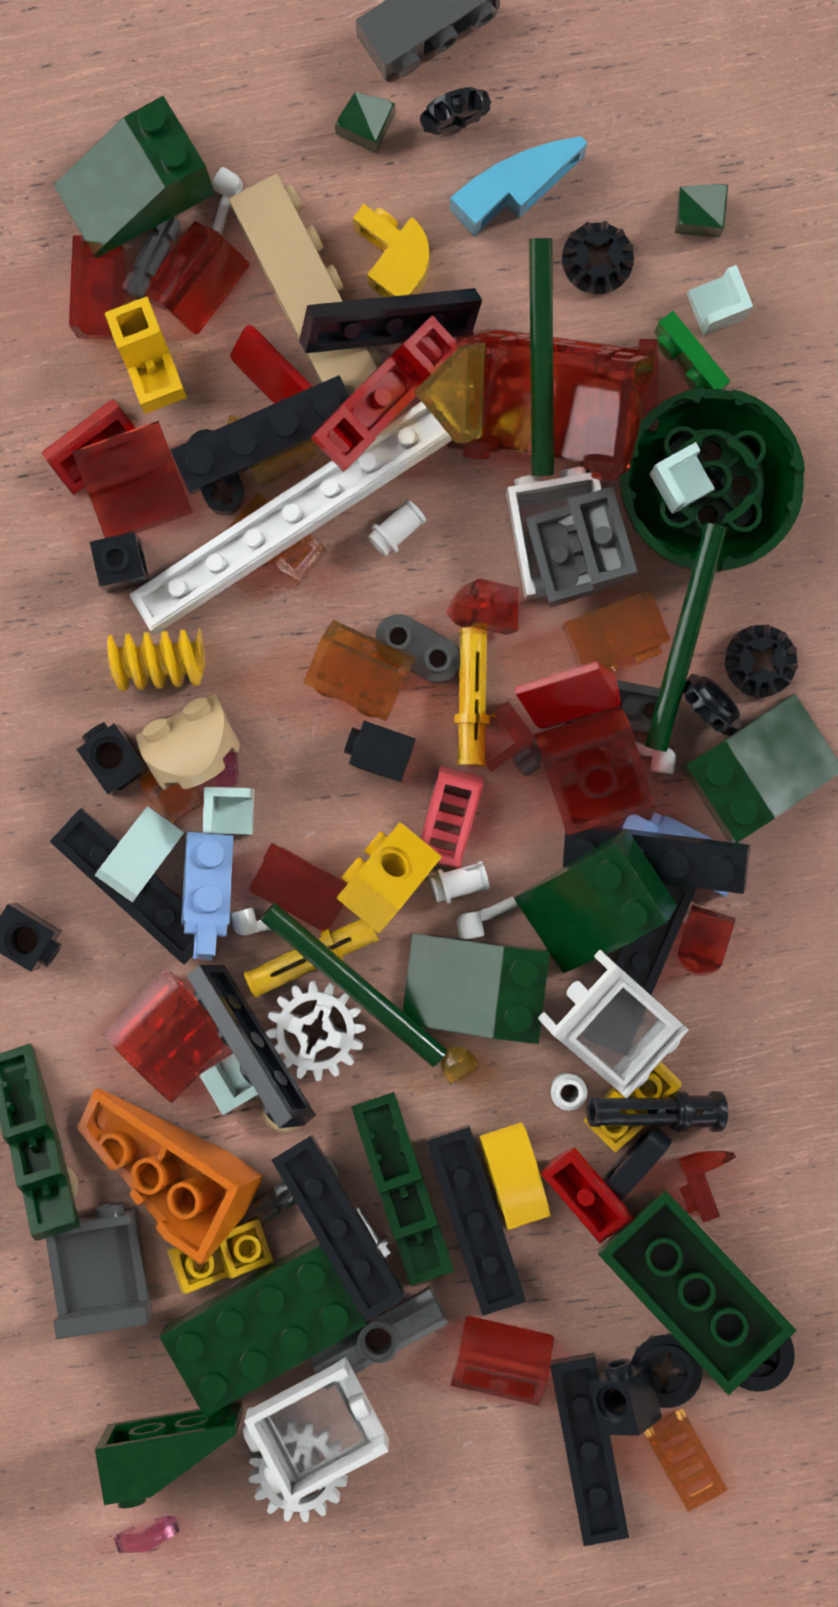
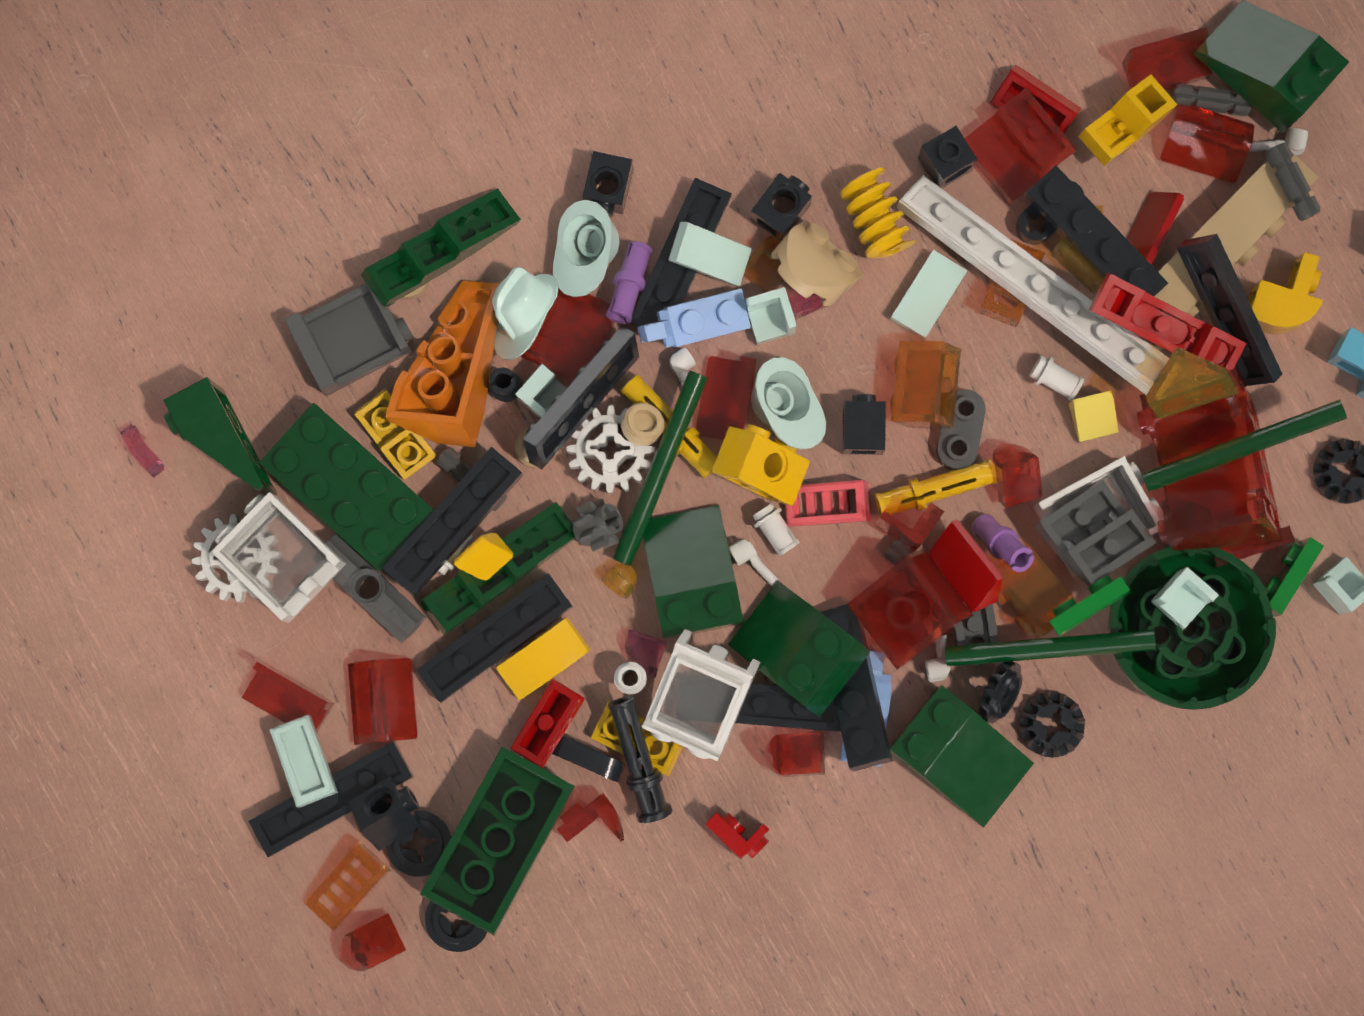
camera: 80 degrees right, 5 degrees down
(87, 987) = (584, 248): none -> light aqua piece
(131, 1078) = (520, 308): none -> light aqua piece
(140, 950) = (629, 282): none -> medium lavender pin
(212, 1111) = (505, 394): none -> black pin
(261, 632) = (928, 294): none -> light aqua tile
(273, 203) = (1293, 181): none -> dark grey axle
(301, 988) = (642, 424): none -> tan tile
(331, 824) = (788, 404): none -> light aqua piece
(388, 1206) = (484, 556): none -> yellow slope
(392, 1071) = (597, 524): none -> dark grey gear
(451, 502) = (1094, 416): none -> light yellow slope
(467, 1461) = (285, 696): none -> clear red panel
(540, 1467) = (303, 761): none -> light aqua tile
(543, 1064) = (645, 651): none -> clear pink tile
(557, 648) = (1002, 543): none -> medium lavender pin
(660, 602) = (1103, 594): none -> green plate
(756, 1455) = (370, 944): none -> clear red plate
(765, 1039) = (729, 832): none -> red bracket

